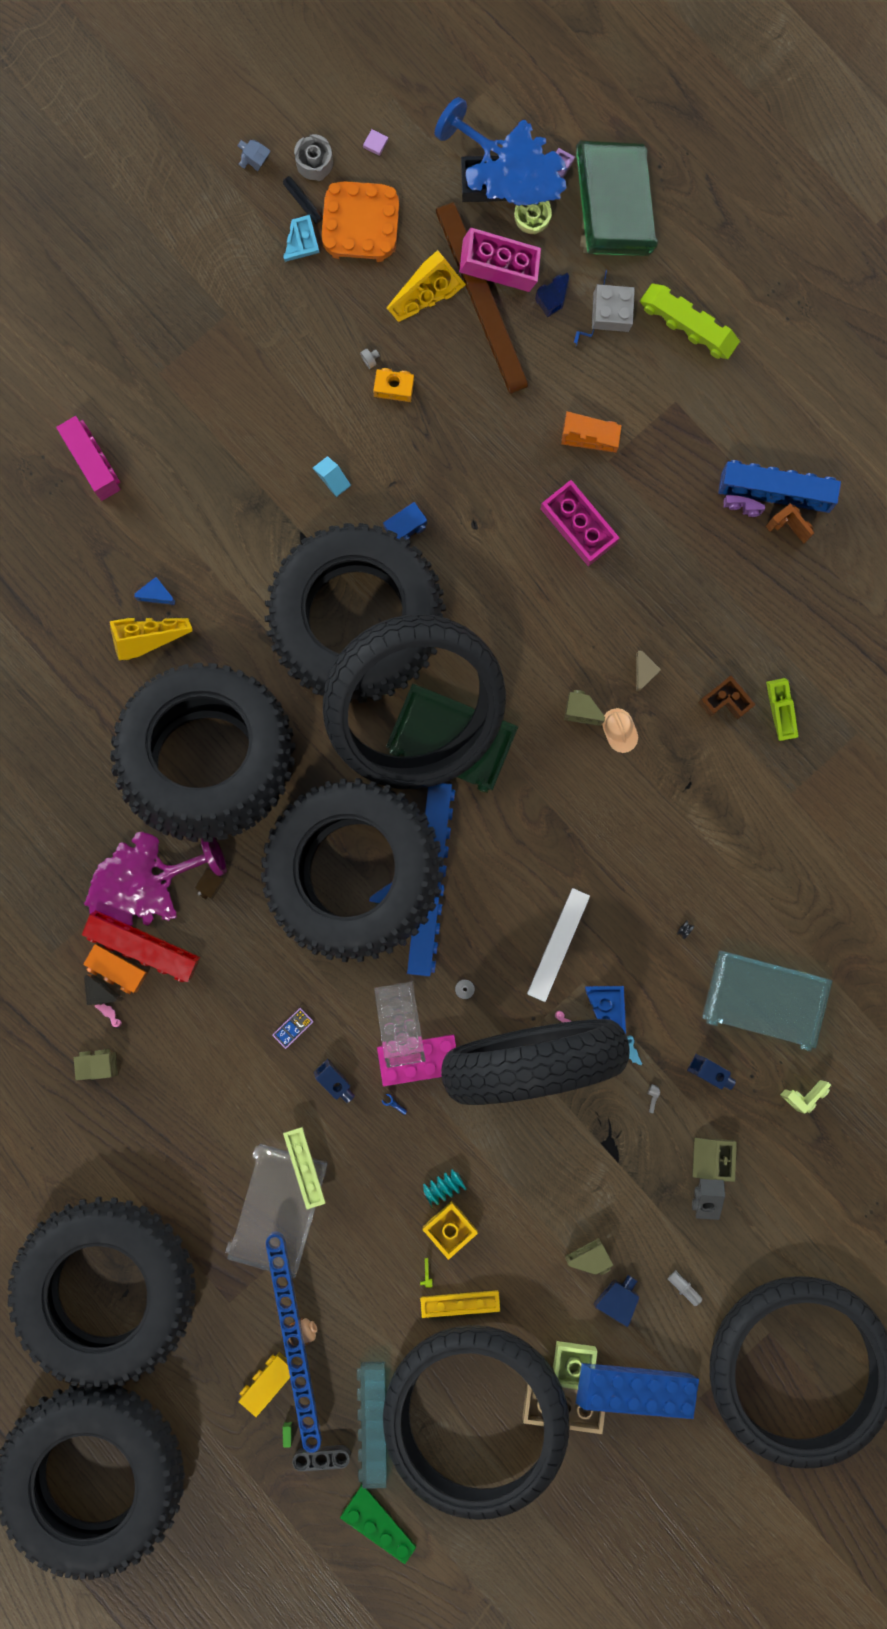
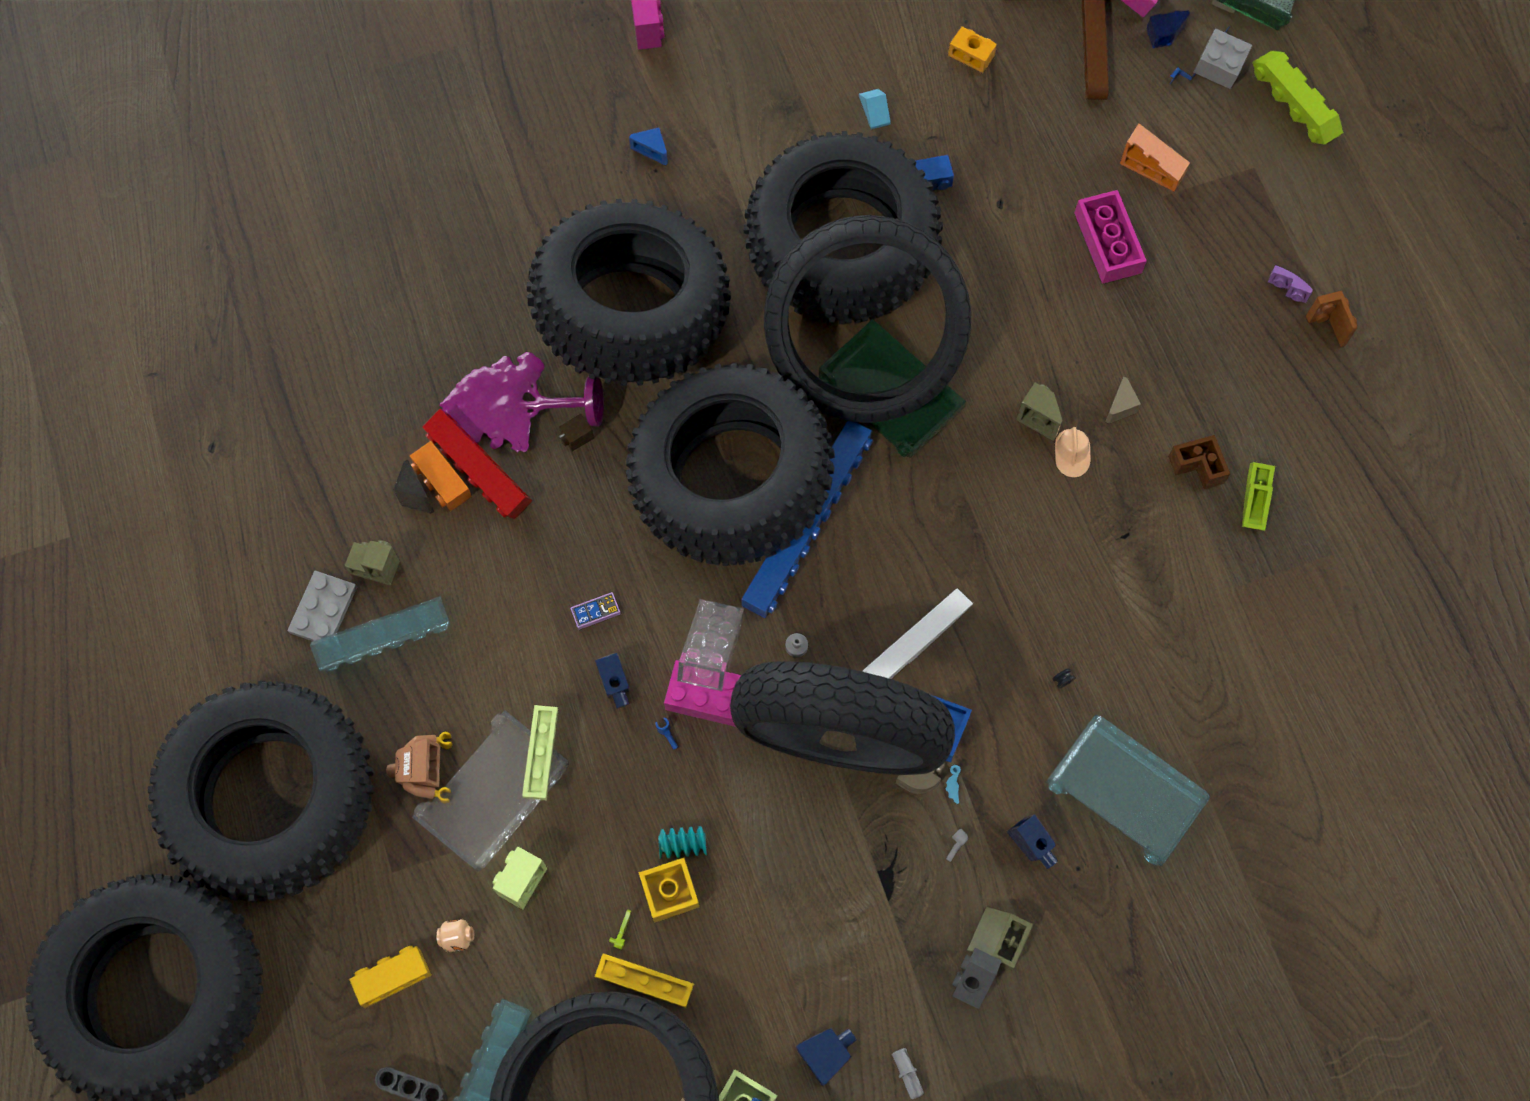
camera: 25 degrees right, 15 degrees down
(72, 1118) = (322, 607): none -> light grey plate
(109, 1012) = (413, 519): bright pink piece -> none
(131, 1122) = (379, 634): none -> clear light blue brick
(140, 637) = (610, 178): yellow wedge -> none
(212, 1216) = (419, 766): none -> nougat torso
(287, 1434) = (385, 1043): bright green tile -> none
(294, 1350) = (443, 946): blue beam -> none
(332, 1270) = (519, 877): none -> yellowish green brick
(369, 358) = (958, 17): light grey tile -> none
(590, 1258) = (813, 988): olive slope -> none
(779, 486) = (1329, 272): blue brick -> none
(806, 1103) = (1119, 912): yellowish green bracket -> none

